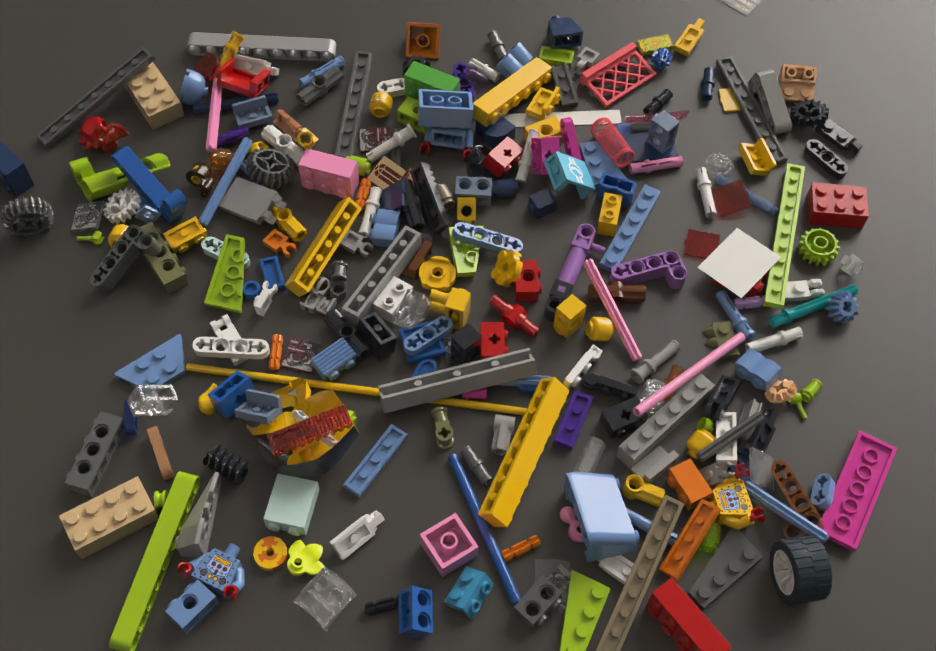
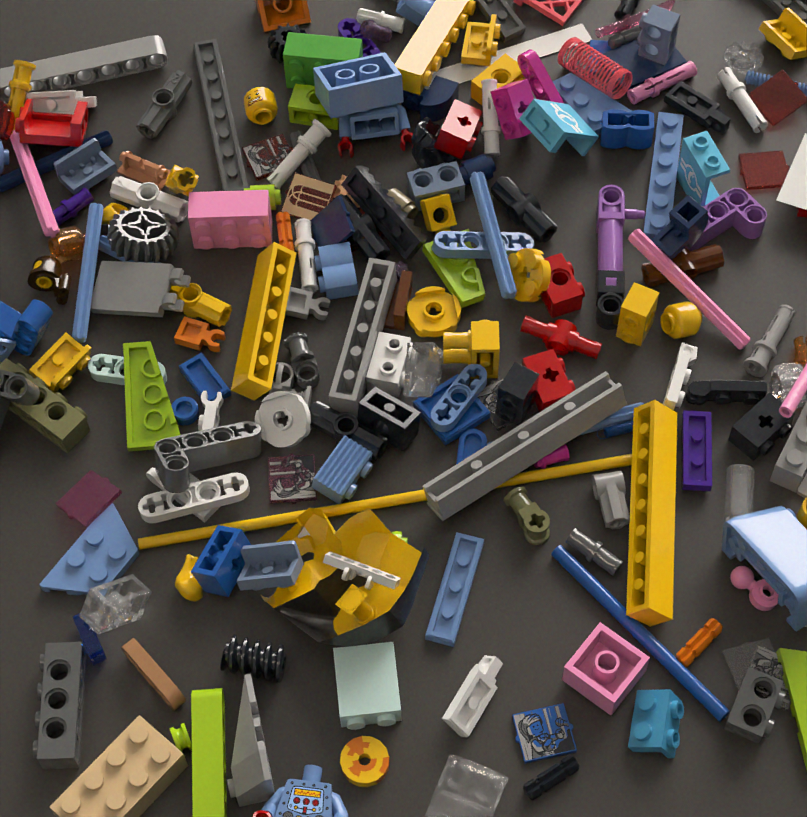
camera: 15 degrees left, 0 degrees up
(167, 327) = (88, 498): none -> clear pink piece
(249, 318) = (203, 450): none -> dark grey beam
(275, 352) = (256, 485): orange axle -> none
(307, 80) = (144, 100): medium blue pin -> none
(307, 556) = (418, 749): neon yellow plate -> none
(309, 430) = (360, 574): clear red gear -> none
(318, 314) = (298, 419): none -> white plate
(393, 87) = (266, 76): white beam -> none
(393, 573) = (544, 733): none -> piece
(415, 612) = (598, 773): blue brick -> none
(495, 233) = (493, 235): none -> medium blue axle
(525, 223) = (523, 209): none -> black piece
(542, 203) = (535, 175): dark blue brick -> none
(609, 214) = (630, 164): yellow brick -> none
(623, 268) = (685, 227): none -> dark blue brick
(653, 230) = (698, 164): none -> medium azure panel
(672, 188) = (697, 107): none -> black hinge

